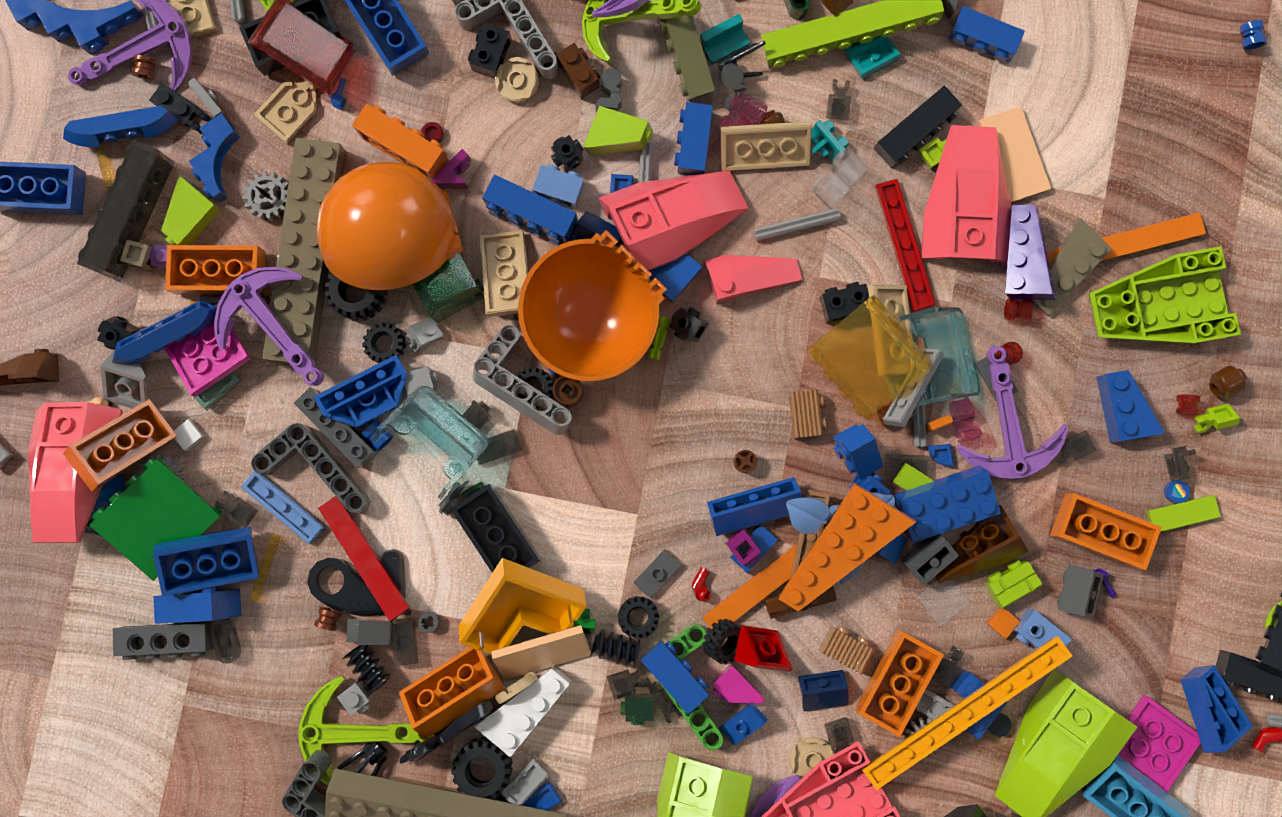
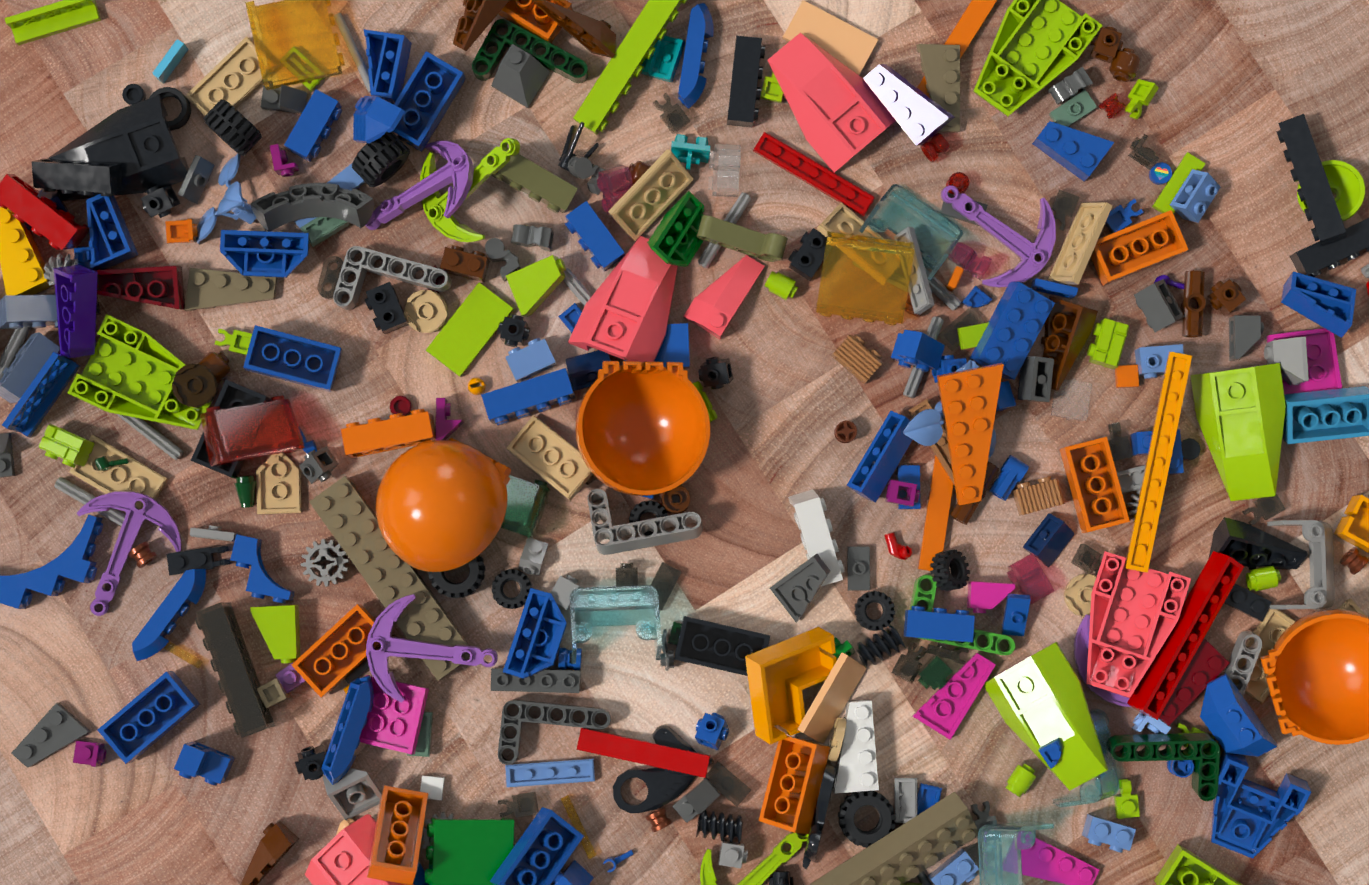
camera: 55 degrees left, 0 degrees up
(40, 256) = (203, 761): none -> blue brick
(261, 89) = (245, 490): none -> dark green cone
(268, 619) = (617, 860): none -> blue hand
(329, 119) = (318, 465): none -> dark grey brick
(421, 624) = (737, 756): dark grey bush -> none
(429, 590) = (711, 730): none -> blue brick
(499, 172) = (477, 390): none -> light orange hinge
(535, 123) = (469, 329): none -> lime tile
(599, 545) = (800, 586): none -> dark grey wing
(629, 743) = (951, 703): none -> dark pink wing
(645, 520) = (816, 532): none -> white wedge
(646, 94) = (531, 236): none -> dark grey leg
(724, 39) = (548, 144): teal panel -> none
(761, 194) = (676, 235): none -> green wedge
(762, 649) = (980, 551): red slope -> none
(780, 706) = (1030, 578): none -> clear pink brick
(800, 305) = (781, 285): none -> lime brick
(802, 241) = (741, 239): none -> olive beam
(840, 468) = (916, 375): none -> light grey axle
(843, 612) = (1011, 473): none -> blue piece
(917, 58) = (699, 28): none -> blue brick
(1010, 502) = (1054, 288): none -> blue tile
(1063, 486) = (1080, 243): none -> tan tile
(1113, 495) = (1120, 217): none -> blue plate
(1119, 605) = (1193, 289): none -> reddish brown piece
(1126, 676) = (1243, 334): none -> dark grey slope
(1140, 634) = (1226, 296): none -> reddish brown brick
(1151, 732) = (1292, 357): none -> light grey slope
(1155, 380) = (1073, 109): none -> sand green plate
(1166, 359) = (1070, 85): none -> dark grey leg
(1189, 533) = (1195, 195): none -> medium blue brick
(1228, 353) = (1106, 44): none -> reddish brown brick

